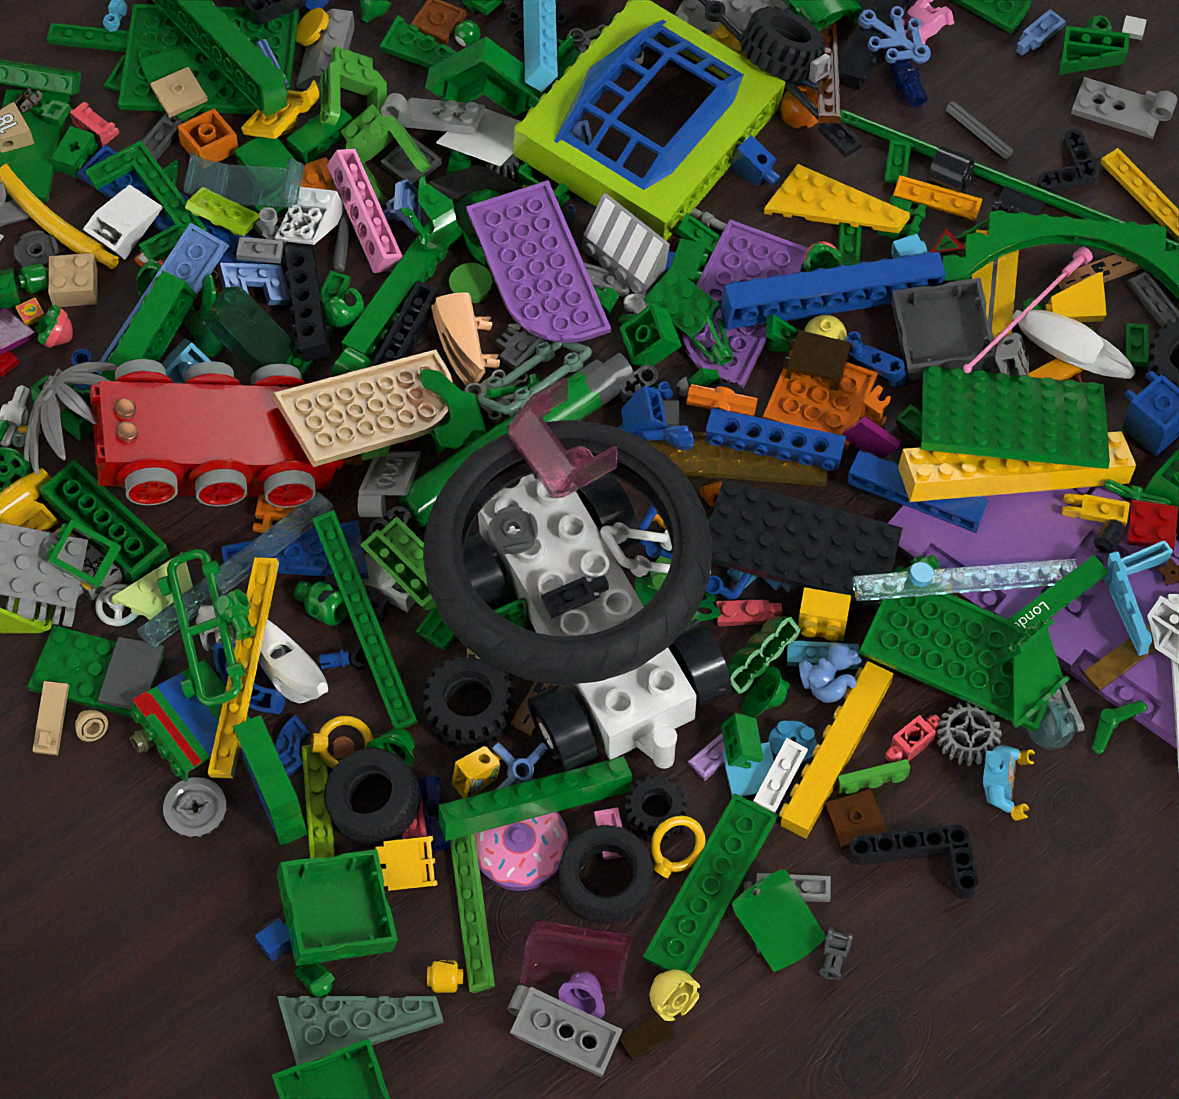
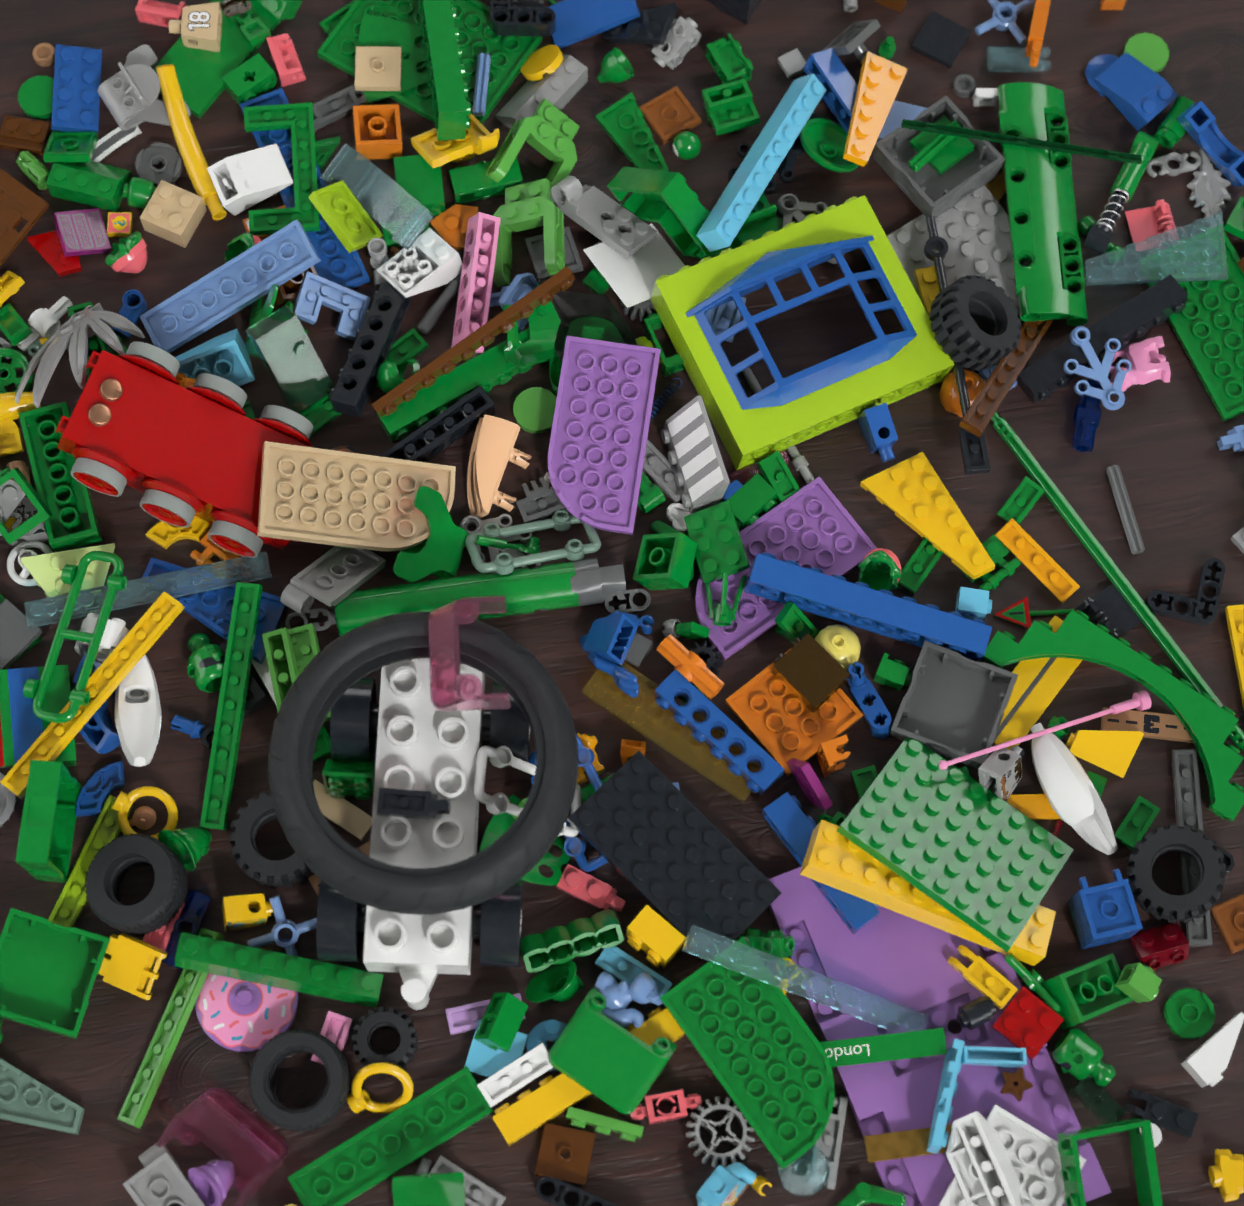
camera: 25 degrees right, 10 degrees up
(154, 323) = (200, 310): green brick -> none
(228, 516) = (166, 534): none -> yellow tile
(235, 611) = (111, 637): green connector -> none
(260, 250) = (356, 274): light grey plate -> none
(350, 361) = (372, 438): green helmet -> none
(392, 250) = (481, 337): none -> reddish brown plate
(444, 976) = (102, 1092): yellow head -> none
(513, 543) = (378, 735): dark grey plate -> none
(819, 68) = (996, 367): light grey tile -> none
(845, 718) = (608, 1057): none -> green windscreen
(880, 332) = (893, 673): none -> green brick
(921, 574) = (758, 959): medium azure tile -> none
(951, 170) = (1066, 541): black piece -> none
(1034, 670) = (810, 1115): green piece -> none

